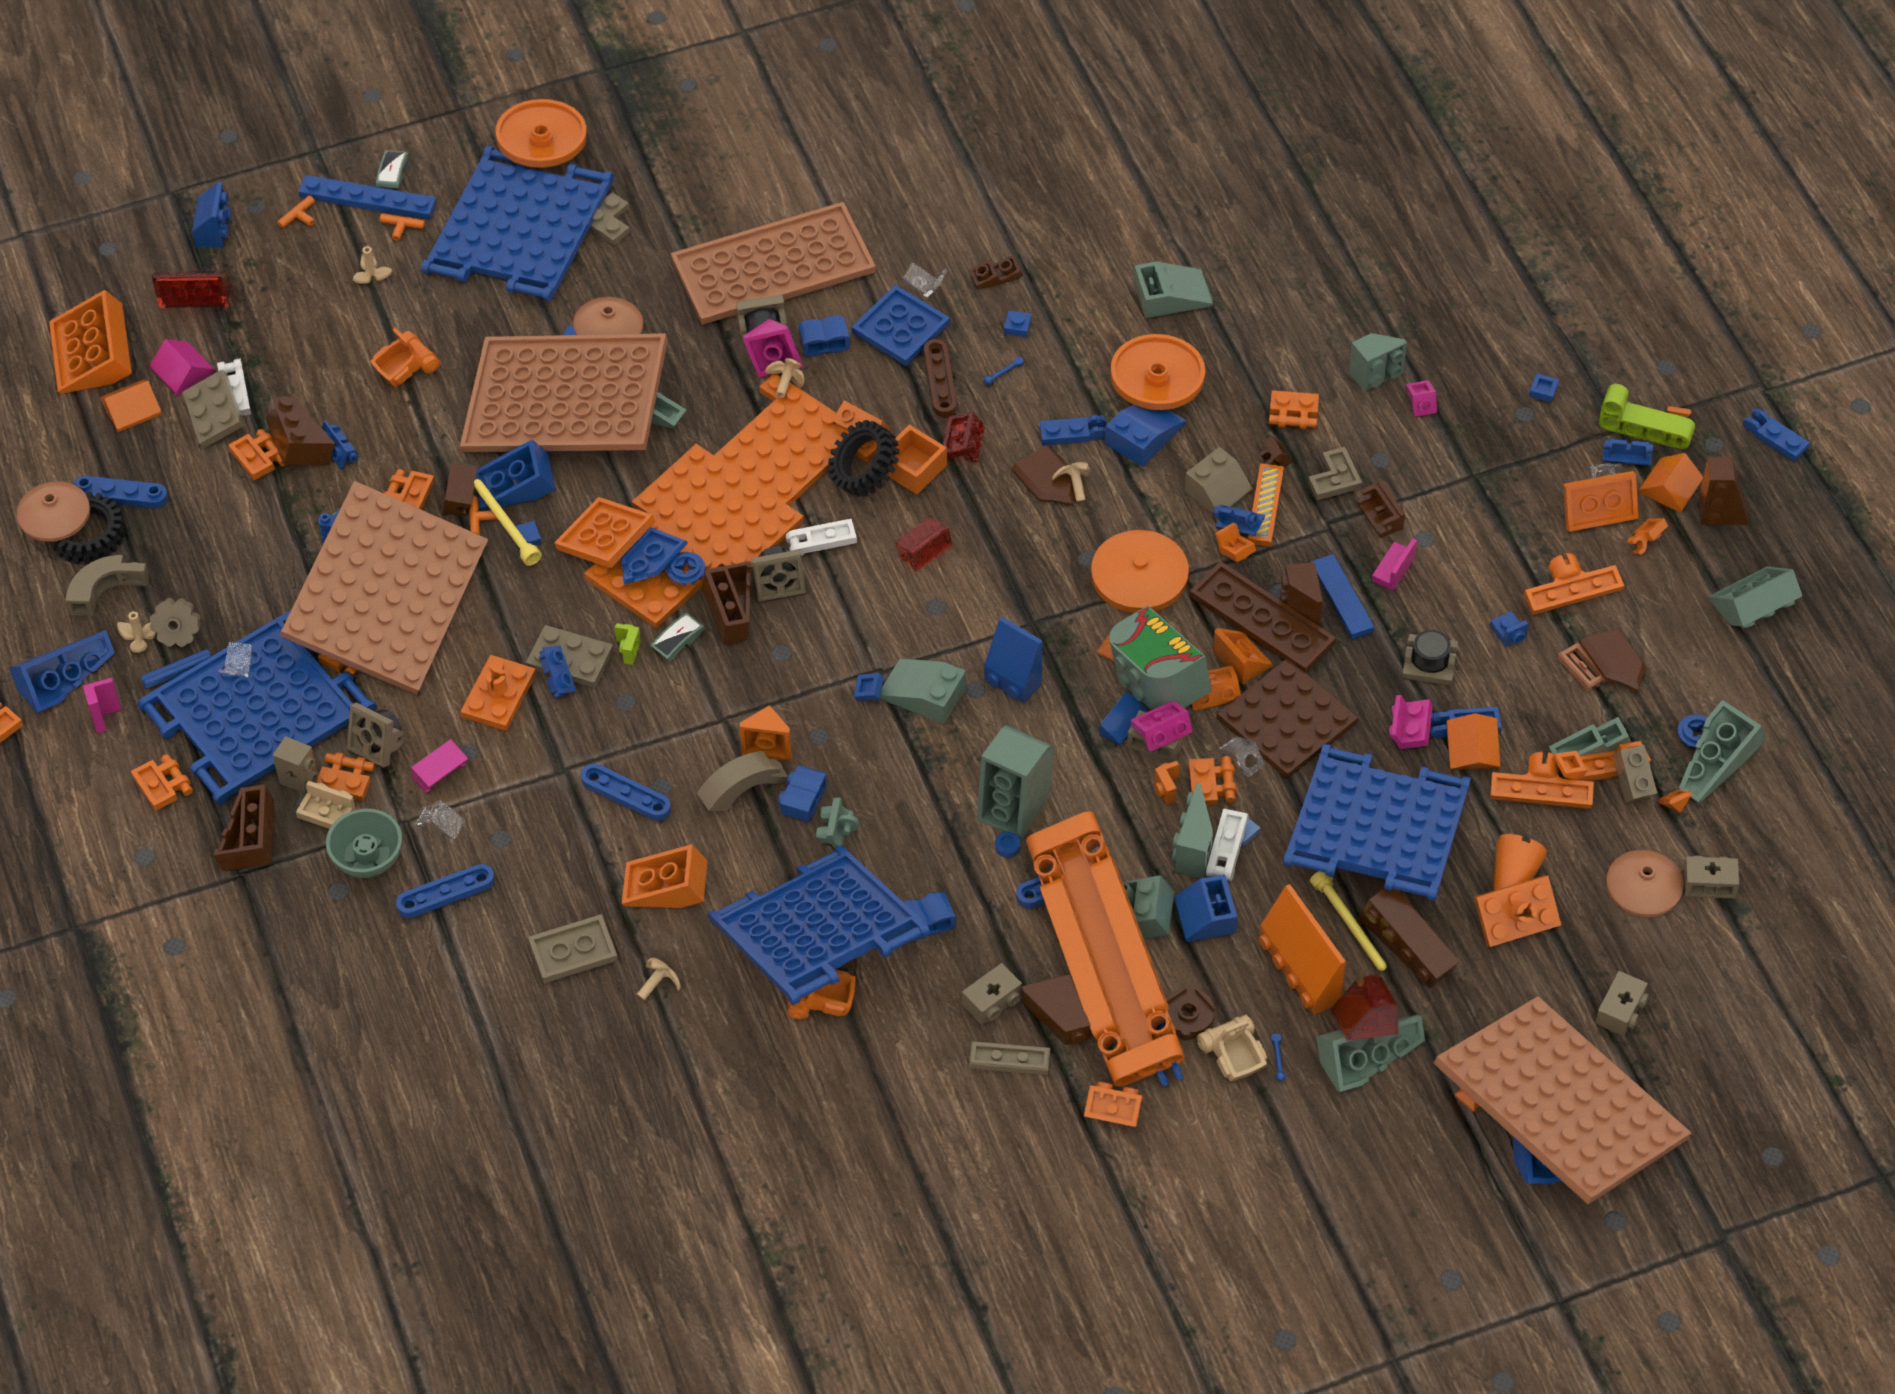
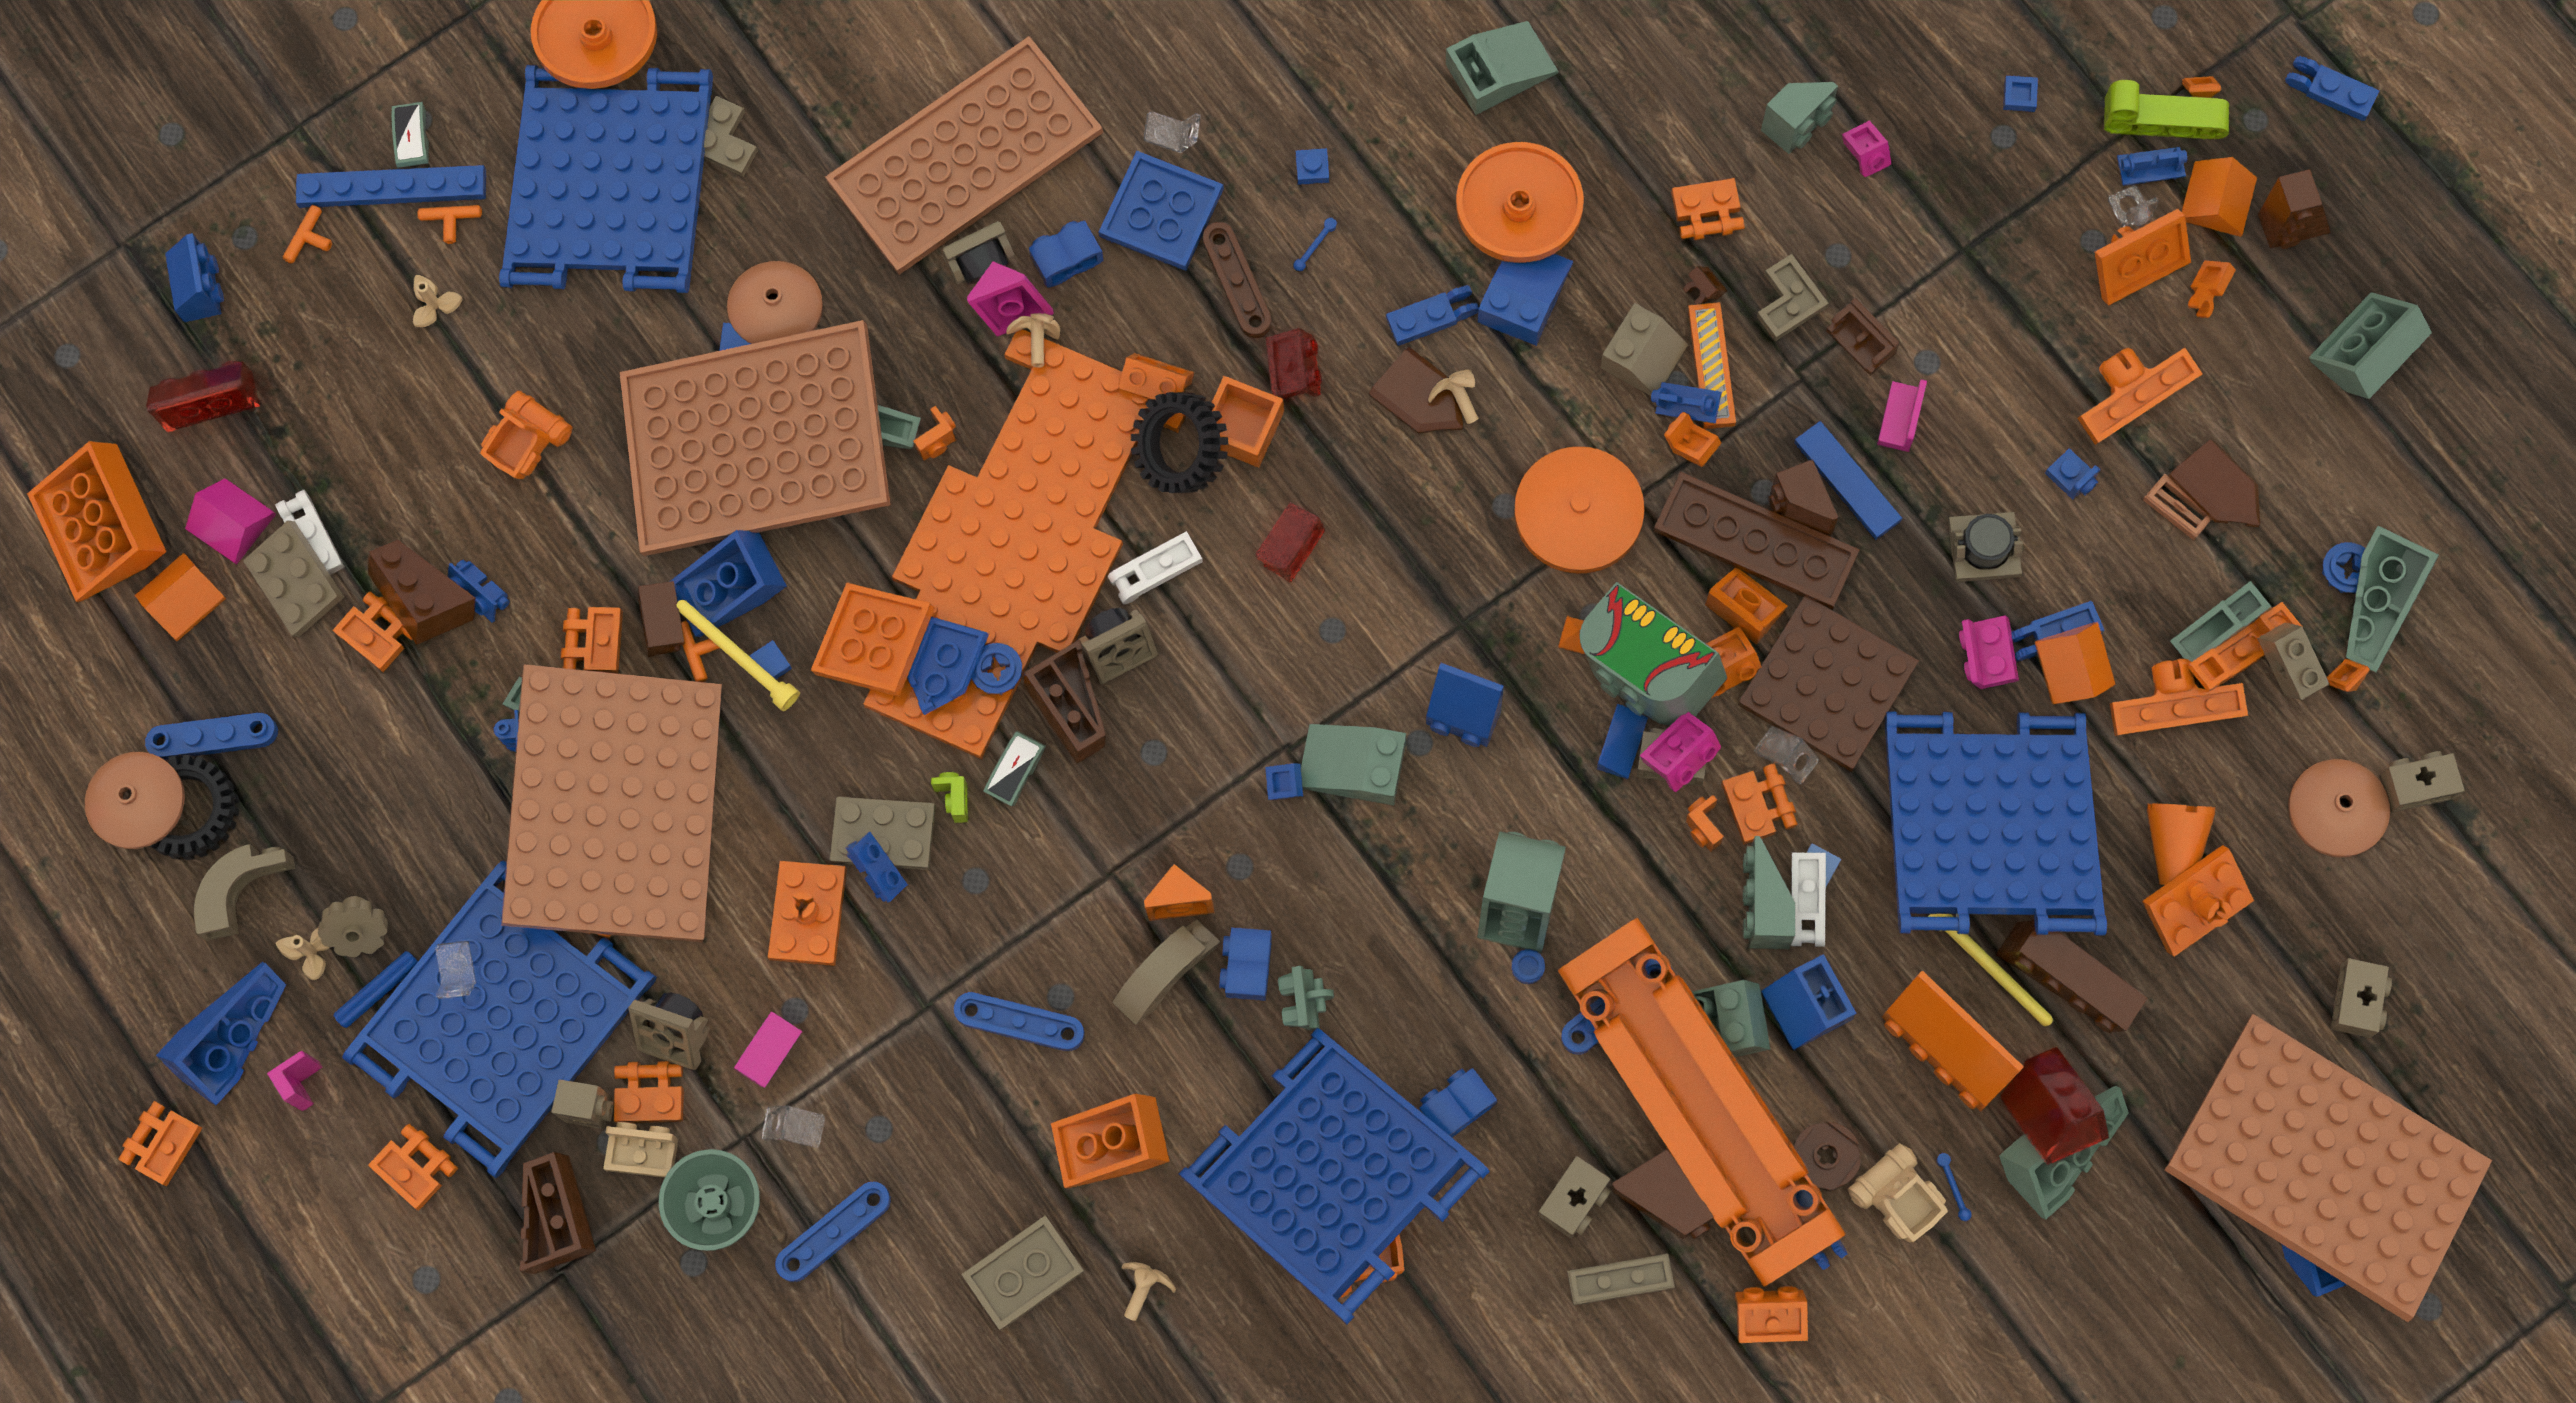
camera: 10 degrees left, 20 degrees up
(693, 424) = (937, 439): none -> orange bracket
(995, 274) = (1262, 94): reddish brown slope -> none

